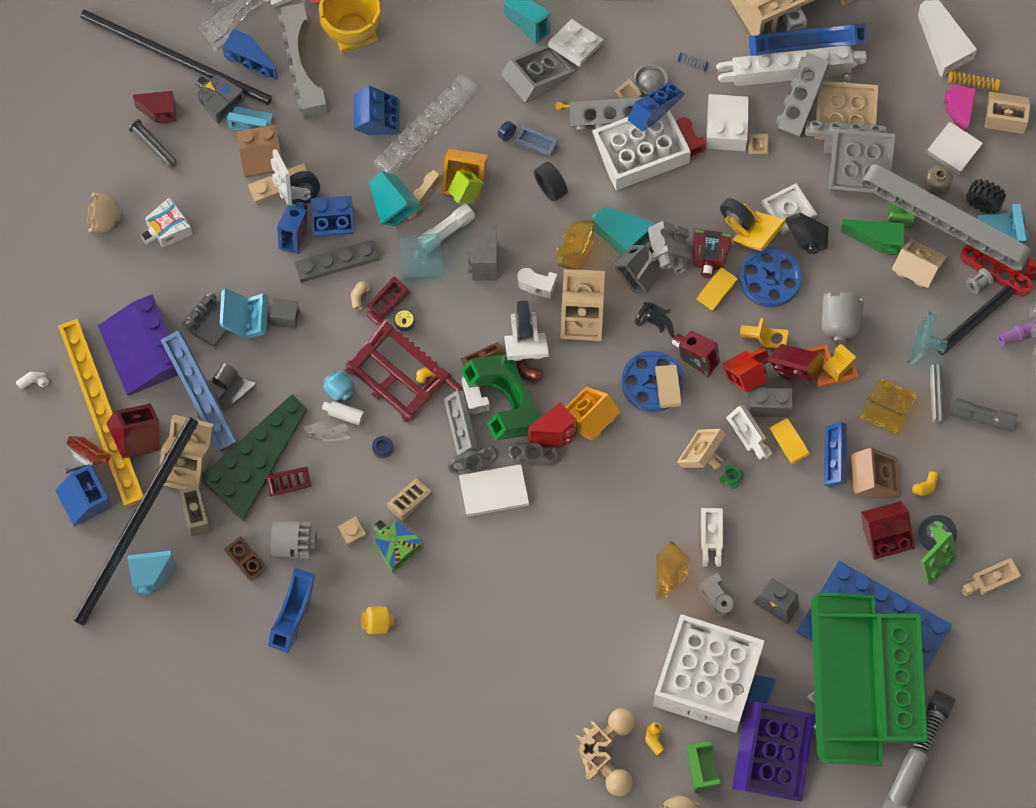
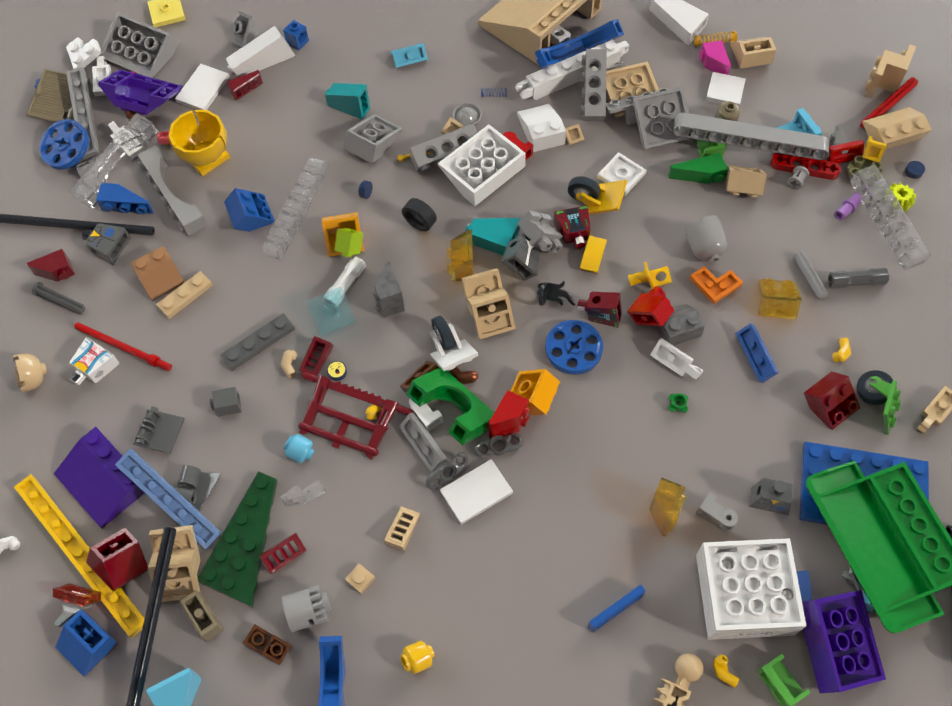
camera: 20 degrees left, 5 degrees down
(225, 242) = (152, 359): none -> red bar
(244, 315) = (189, 416): medium azure bracket -> none
(246, 119) = (135, 251): medium azure panel -> none
(295, 221) = (208, 317): blue torso -> none
(296, 187) = (201, 291): plate -> none
(332, 216) = (240, 303): blue slope -> none
(344, 412) = (312, 470): white cylinder -> none
(382, 447) = (359, 489): dark blue tile -> none
(392, 199) = (289, 273): teal slope -> none
(396, 544) = (406, 575): torso -> none
(423, 194) = (314, 260): tan plate -> none
(536, 140) = (392, 190): sand blue tile -> none
(536, 283) = (440, 300): white leg -> none
(575, 42) = (394, 107): white plate -> none
(579, 646) = (615, 609): none -> blue tile
(654, 106) = (481, 127): blue slope -> none
(668, 386) = (592, 345): tan slope -> none
(702, 449) = (645, 387): tan tile -> none
(711, 534) = (686, 460): white hinge -> none
(773, 268) = (634, 236): blue wedge -> none
(789, 441) = (713, 354): yellow slope -> none
(797, 362) = (690, 288): dark red slope -> none
(808, 233) = (647, 184): black slope -> none
(840, 362) = (724, 275): yellow panel -> none
(875, 474) = (796, 357): medium nougat slope -> none
(924, 339) = (781, 233): clear light blue tile -> none
(978, 317) = (809, 208): black axle -> none
(985, 196) = (776, 107): black tyre -> none

